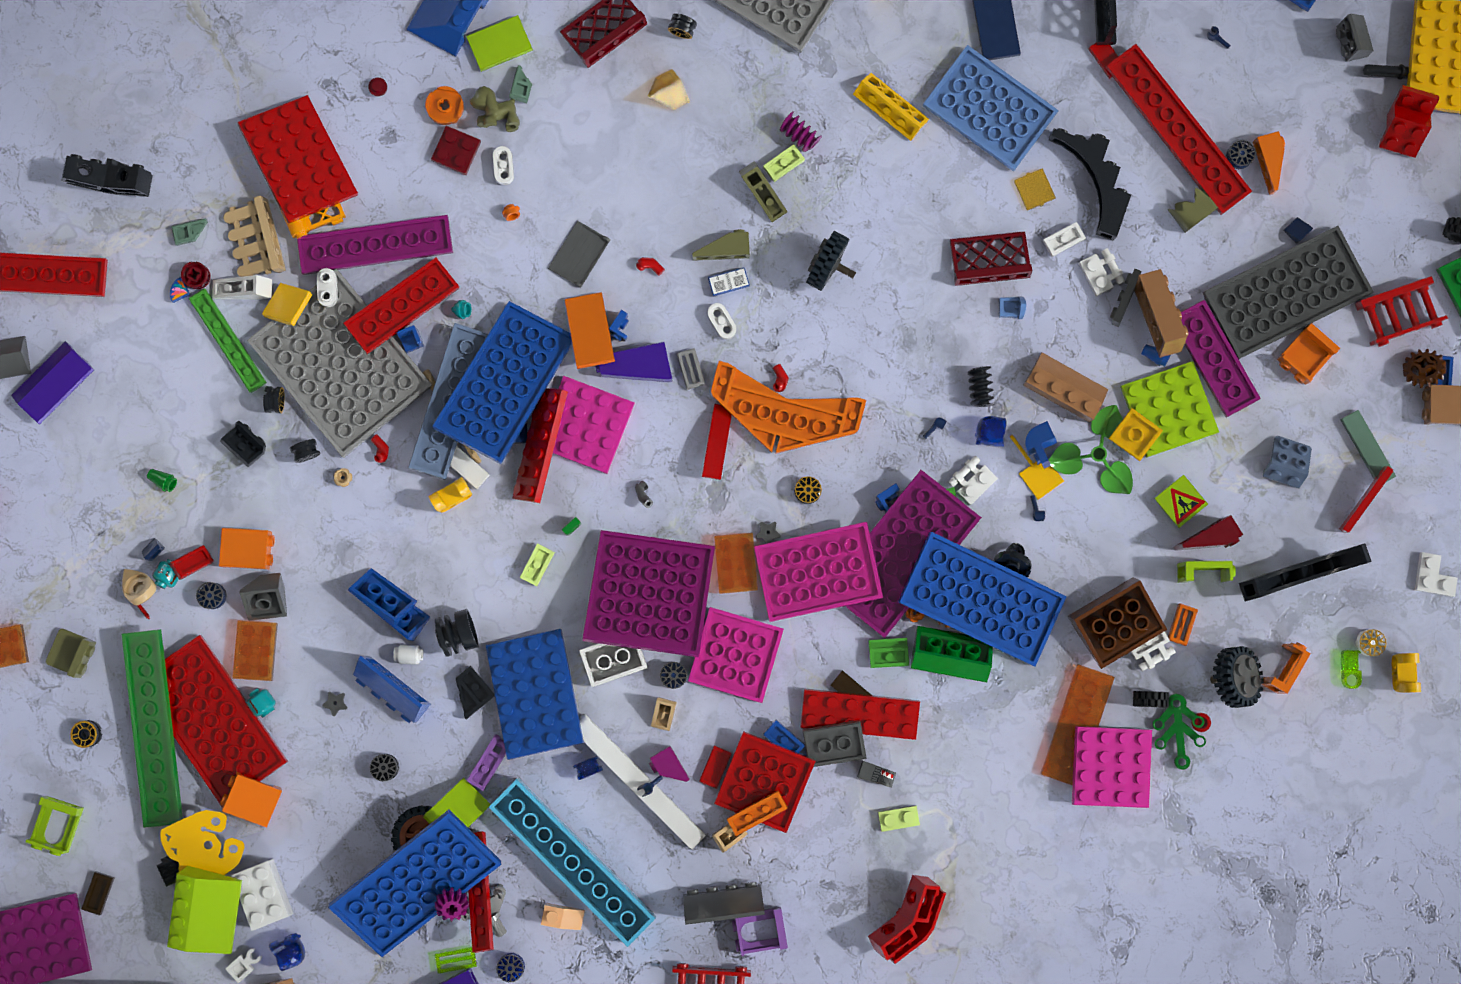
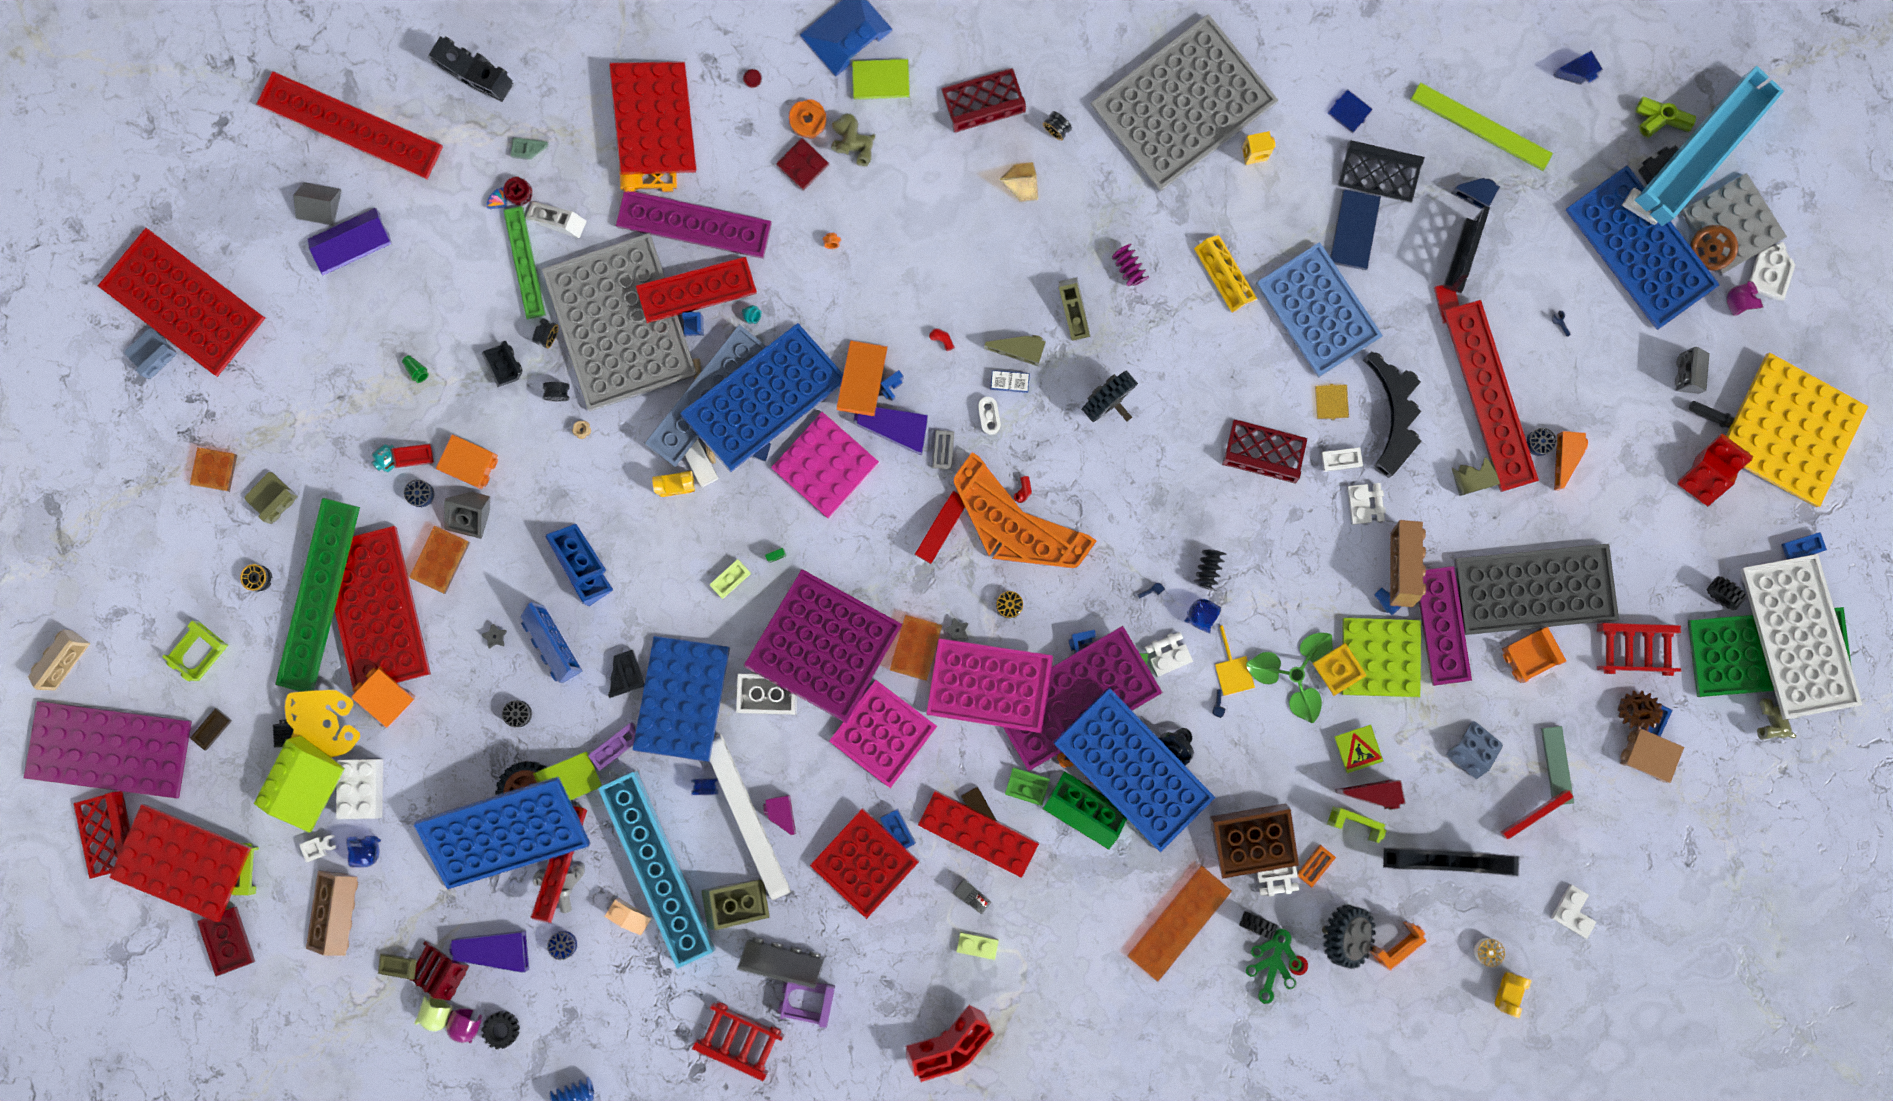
camera: 25 degrees right, 0 degrees up
(138, 588) = (354, 461): tan piece -> none
(152, 550) = (381, 431): dark blue slope -> none
(261, 702) = (426, 610): teal head -> none
(269, 244) = (595, 185): tan fence -> none
(287, 304) = (591, 249): yellow tile -> none
(328, 286) = (635, 247): white plate -> none
(382, 449) = (628, 417): red arm -> none
(408, 654) = (579, 617): white brick -> none
(451, 904) = (528, 866): magenta gear -> none
(453, 952) = (513, 926): clear neon green tile -> none
(456, 632) = (633, 614): black wheel -> none
(503, 166) = (841, 195): white plate -> none
(520, 87) = (885, 127): sand green tile -> none
(539, 446) = (774, 469): red plate -> none
(579, 254) = (880, 303): dark grey piece -> none
(642, 496) = (852, 552): dark grey arm -> none
(648, 787) = (754, 826): dark blue hand -> none
(658, 866) = (735, 904): none -> olive slope
(663, 714) = (794, 763): tan slope -> none
(673, 675) = (817, 730): wheel -> none
(715, 767) = (823, 831): red tile -> none
(726, 838) = (812, 900): tan slope -> none
(757, 813) = (845, 890): orange plate -> none
(784, 163) = (1104, 289): yellowish green plate -> none
(835, 743) = (944, 852): dark grey tile -> none
(1012, 307) = (1268, 505): medium blue tile -> none
(1039, 439) = (1245, 639): blue brick -> none
(1066, 387) = (1290, 600): medium nougat slope -> none
(1112, 767) = (1197, 975): dark pink plate -> none
(1125, 297) = (1378, 536): dark grey plate -> none
(1297, 230) = (1568, 533): dark blue slope -> none
(1350, 666) = (1461, 967): clear neon green piece -> none

